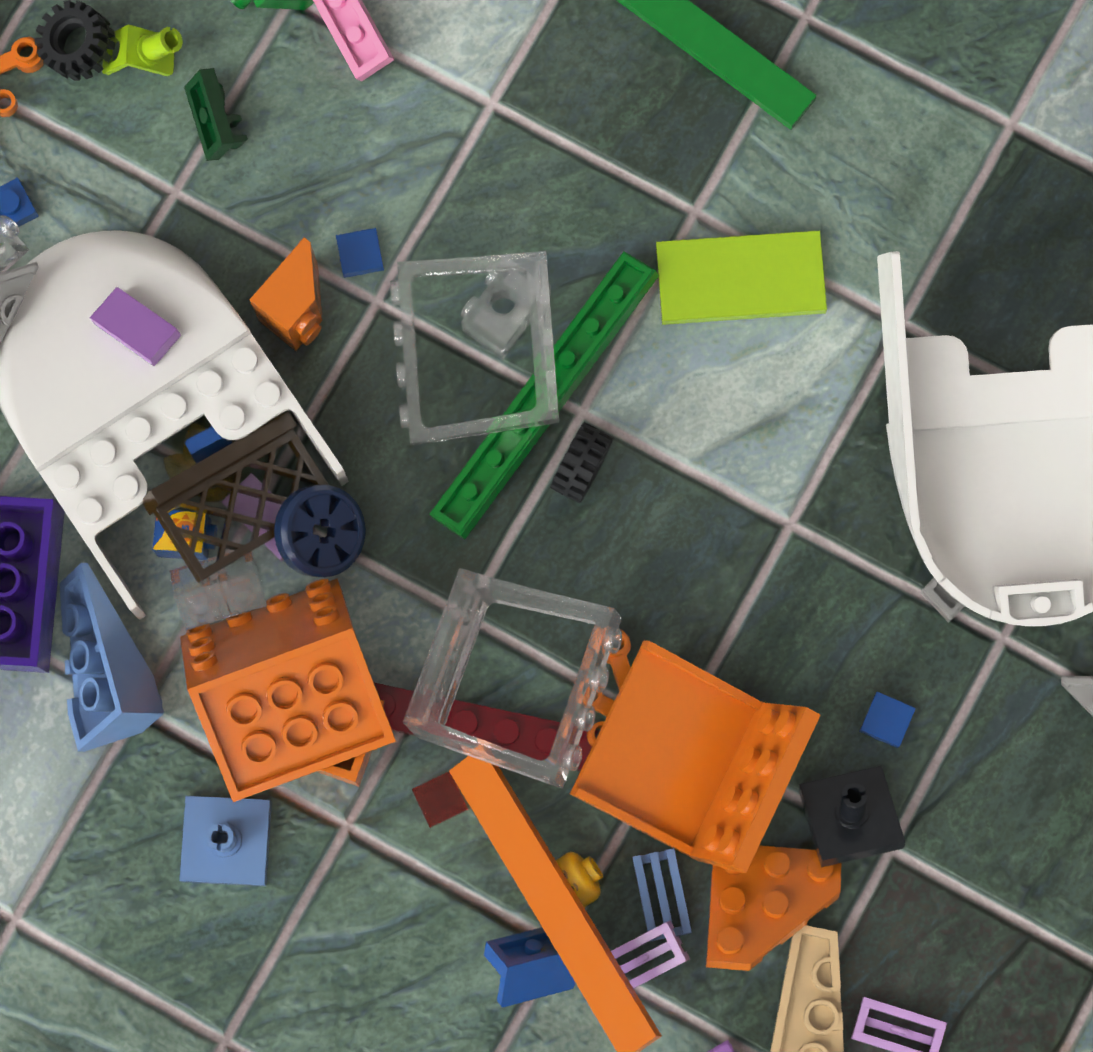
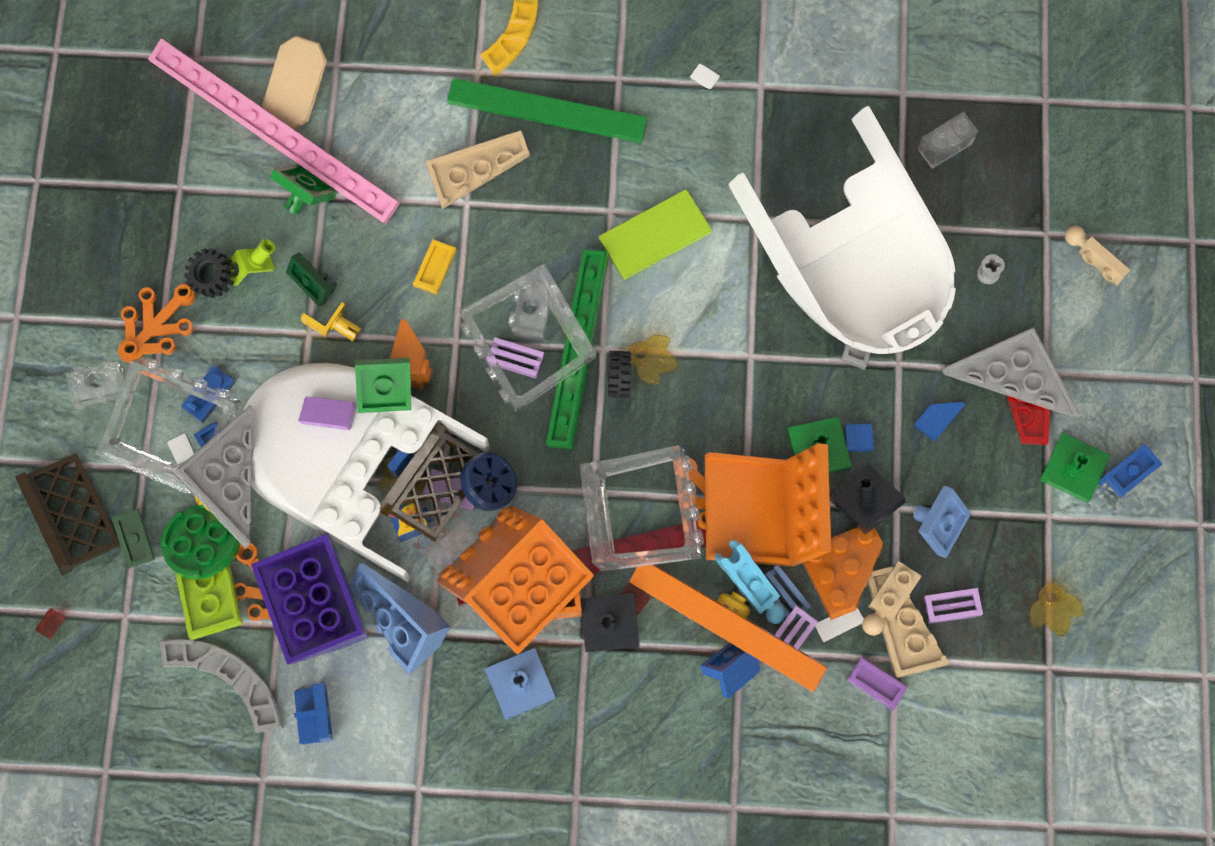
camera: 30 degrees left, 5 degrees down
(219, 196) = (336, 323): none -> yellow bracket
(226, 325) = (383, 385): none -> tile
(359, 252) = (433, 318): blue tile -> none
(393, 816) = (610, 622): none -> black tile
(399, 177) = (434, 267): none -> yellow tile
(424, 342) = (520, 349): none -> lavender tile
(520, 54) = (471, 167): none -> tan wing
(619, 860) = (752, 582): none -> medium azure plate
(649, 464) = (656, 358): none -> clear yellow plate
(702, 978) = (831, 628): none -> white sticker
(809, 977) = (890, 598): none -> tan plate
(834, 694) = (822, 432): none -> green tile
(935, 71) = (704, 76): none -> white sticker
(943, 902) = (943, 521): none -> medium blue tile
(1018, 746) = (937, 418): none -> blue tile

